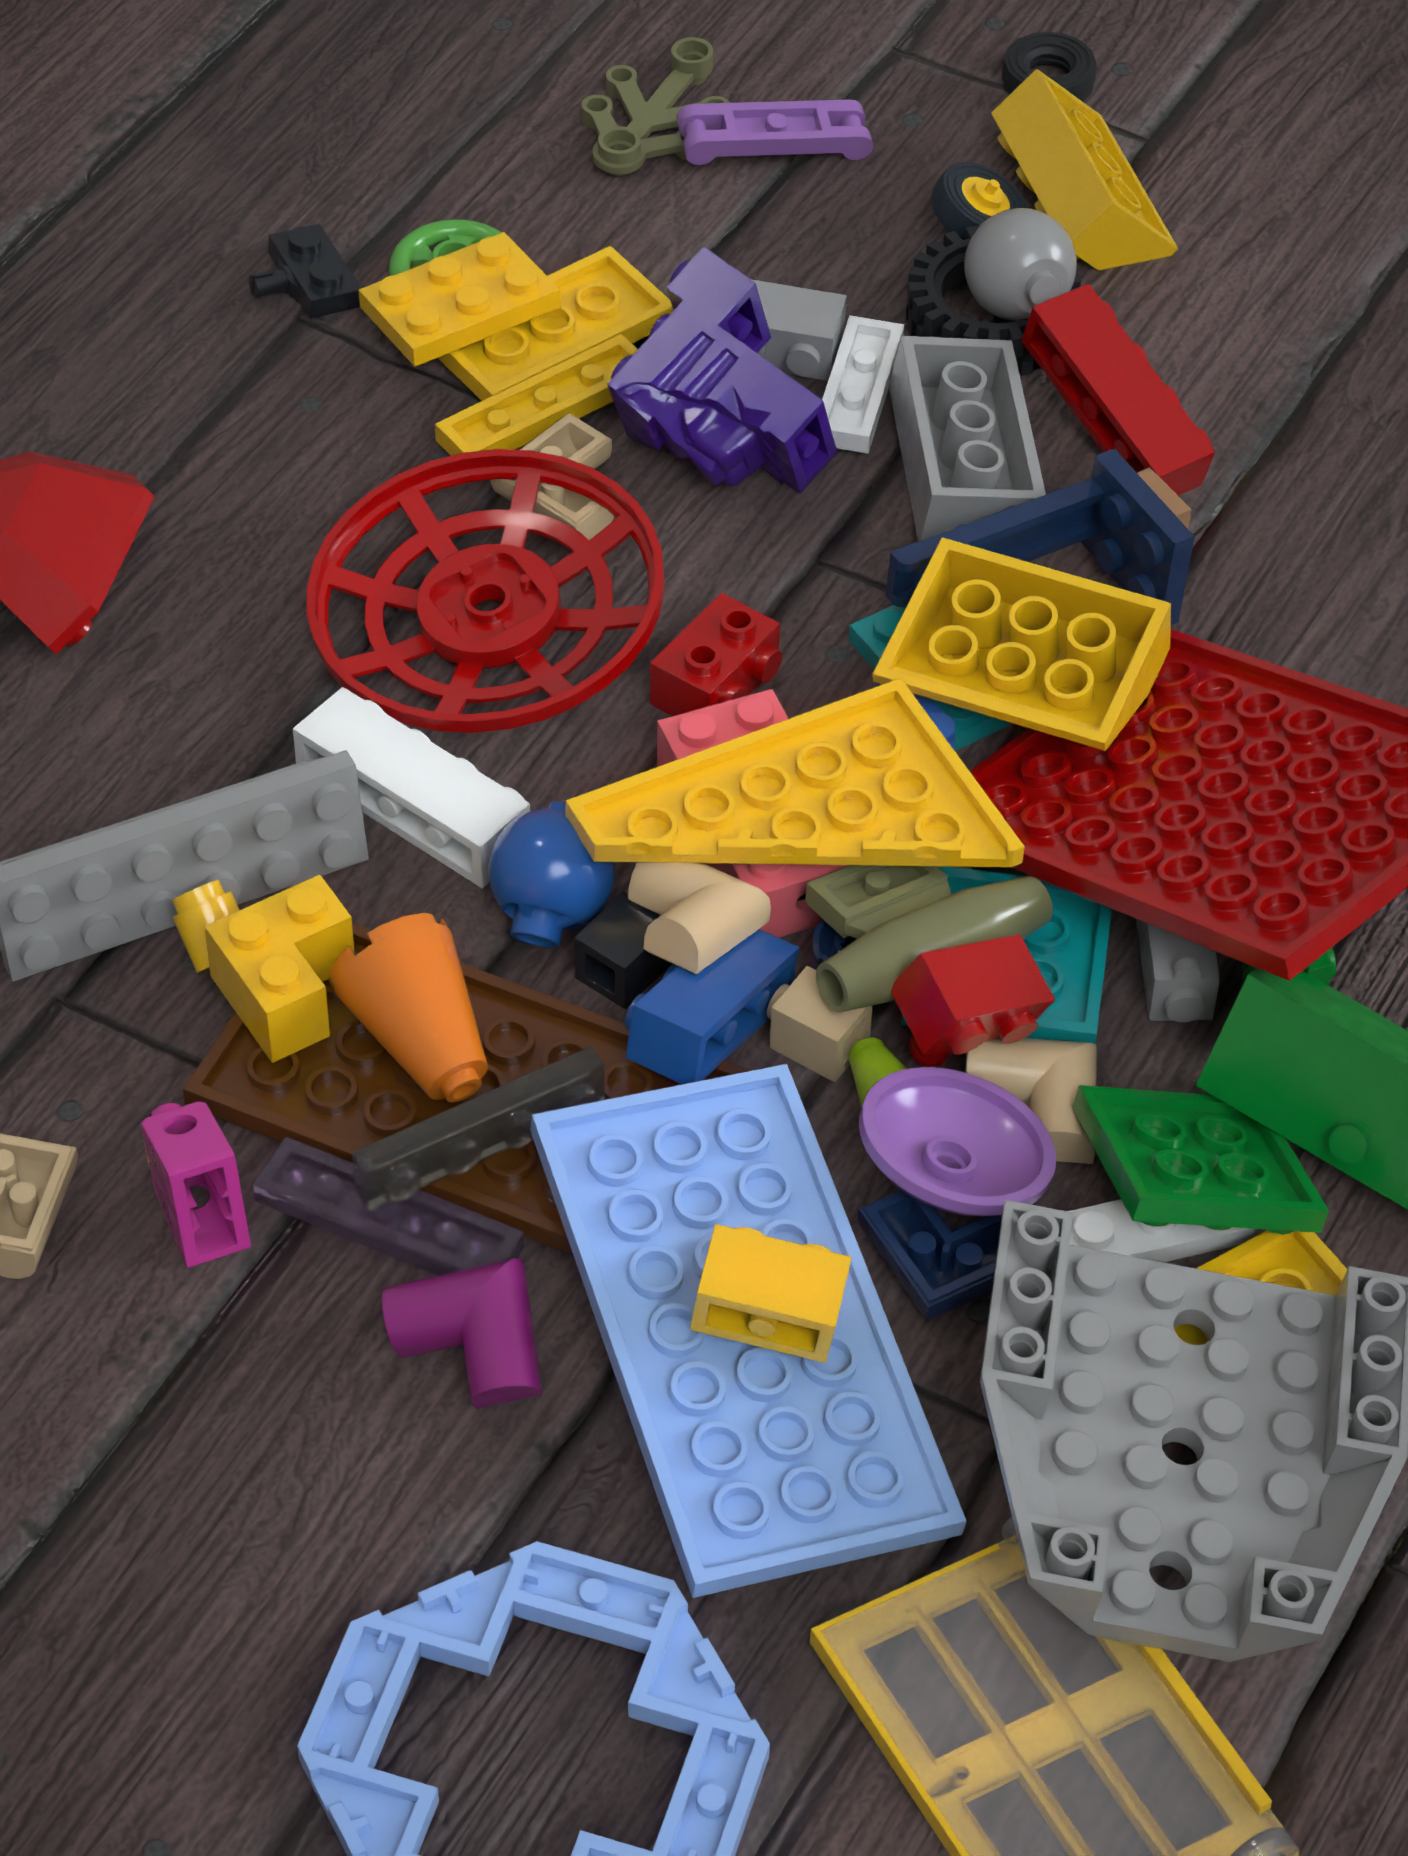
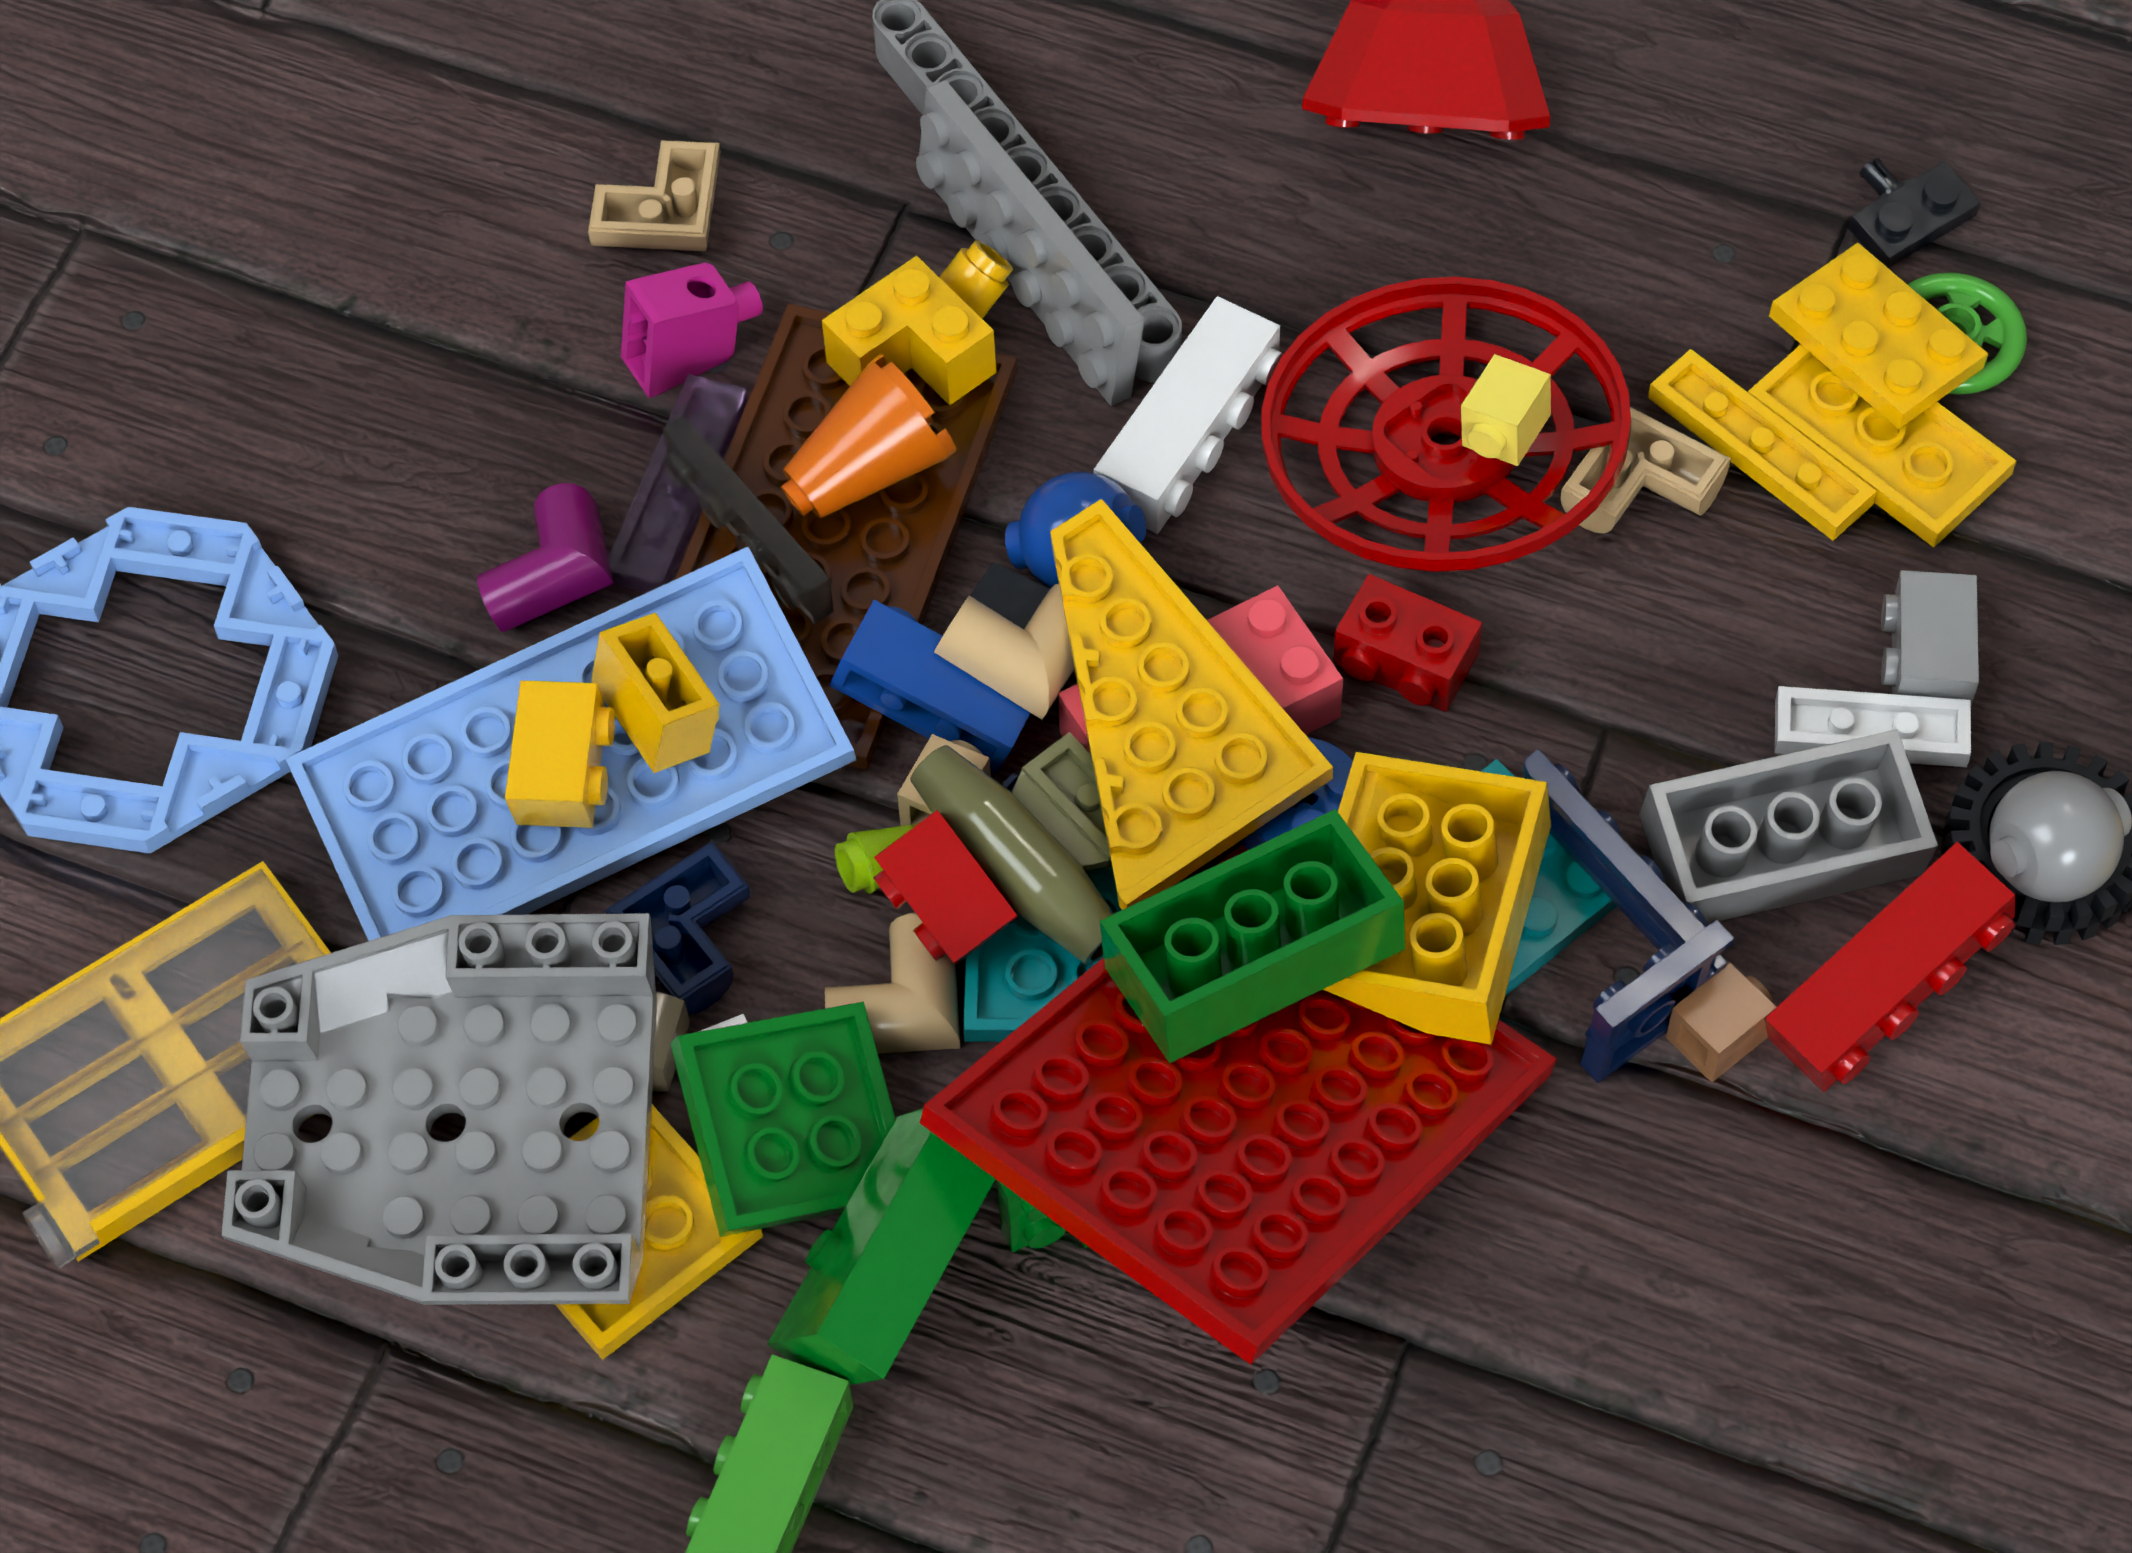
camera: 85 degrees right, 10 degrees up
(513, 518) = (1506, 410): none -> light yellow brick
(711, 392) = (1773, 568): dark purple brick -> none
(718, 1190) = (655, 692): none -> yellow brick
(956, 1141) = (787, 862): medium lavender dish -> none
(1096, 738) = (1253, 935): none -> green brick

